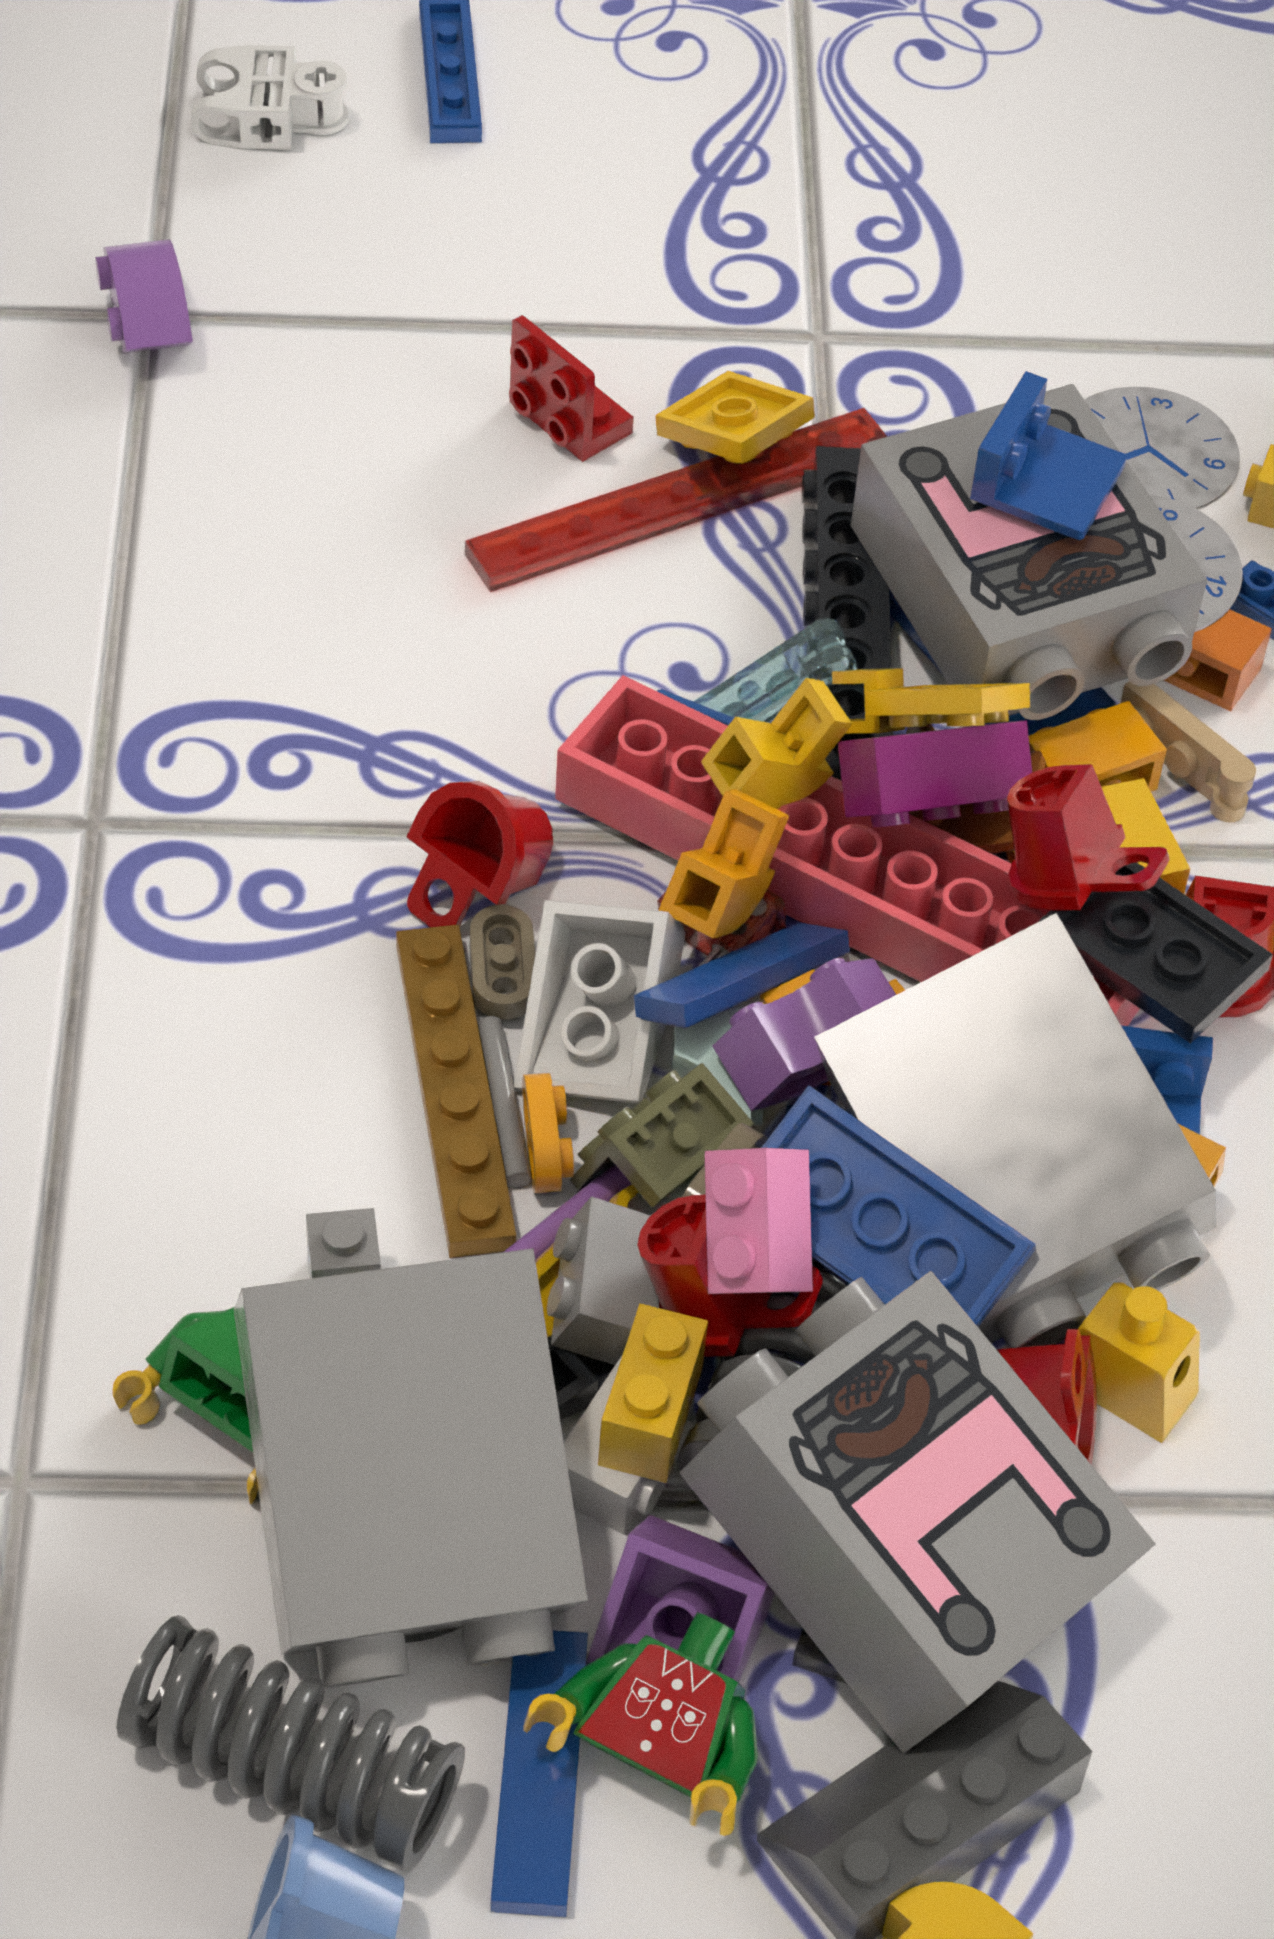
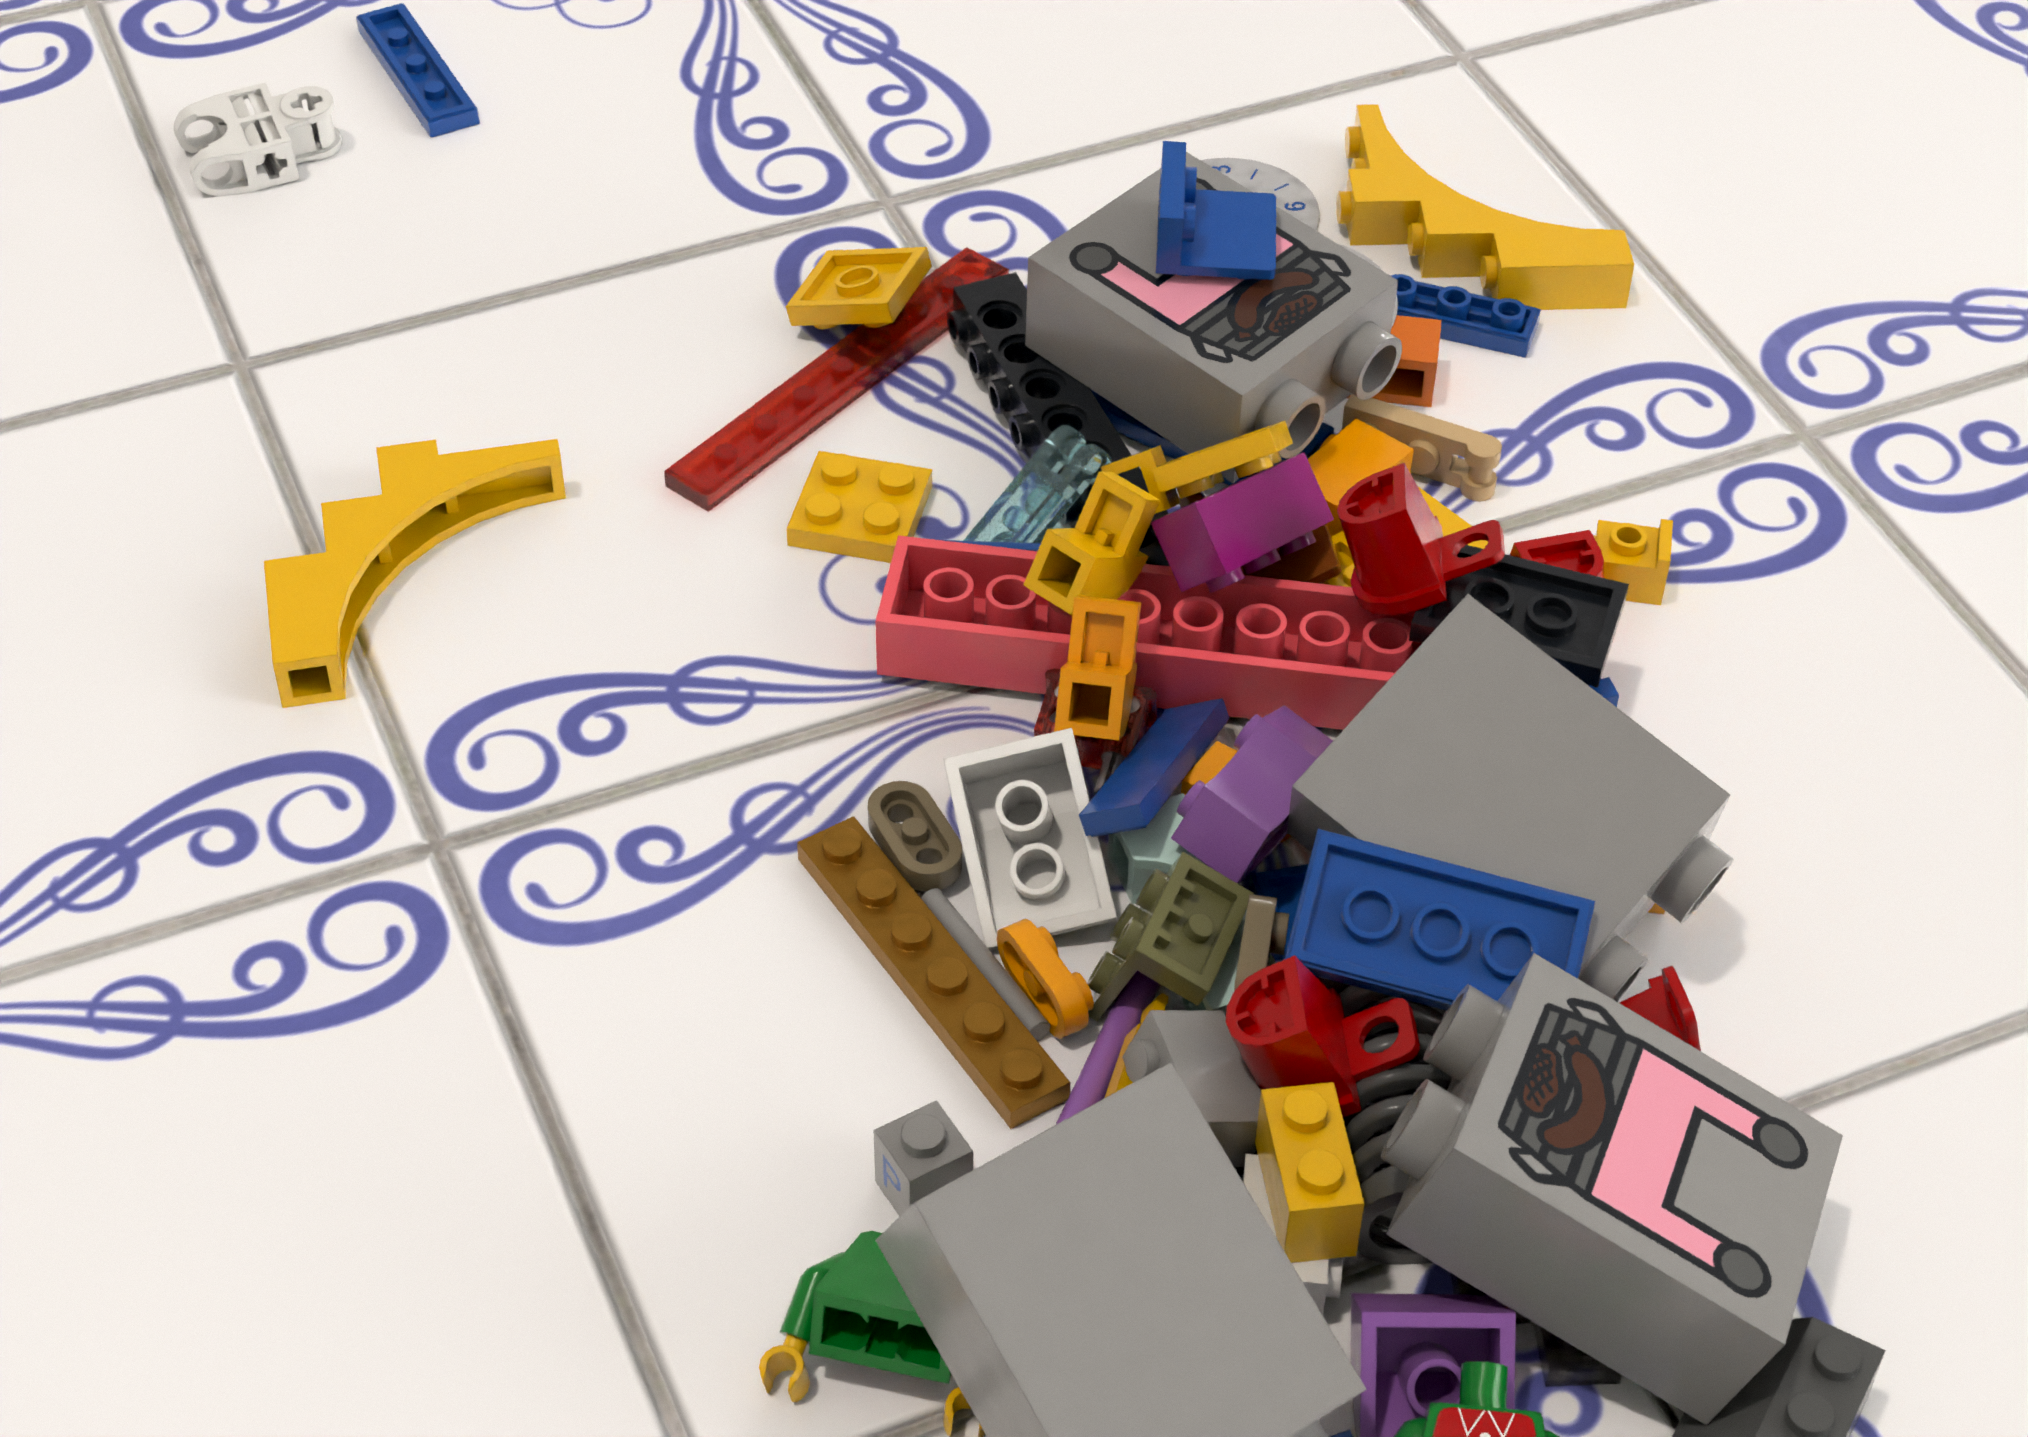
camera: 20 degrees left, 5 degrees down
(145, 295) = (236, 342): medium lavender brick -> none
(235, 499) = (369, 540): none -> yellow arch
(477, 844) = (838, 731): red container -> none
(562, 394) = (687, 310): red bracket -> none
(626, 631) = (858, 506): none -> yellow plate
(758, 1221) = (1340, 969): bright pink brick -> none
(1143, 1358) = (1715, 970): yellow torso -> none

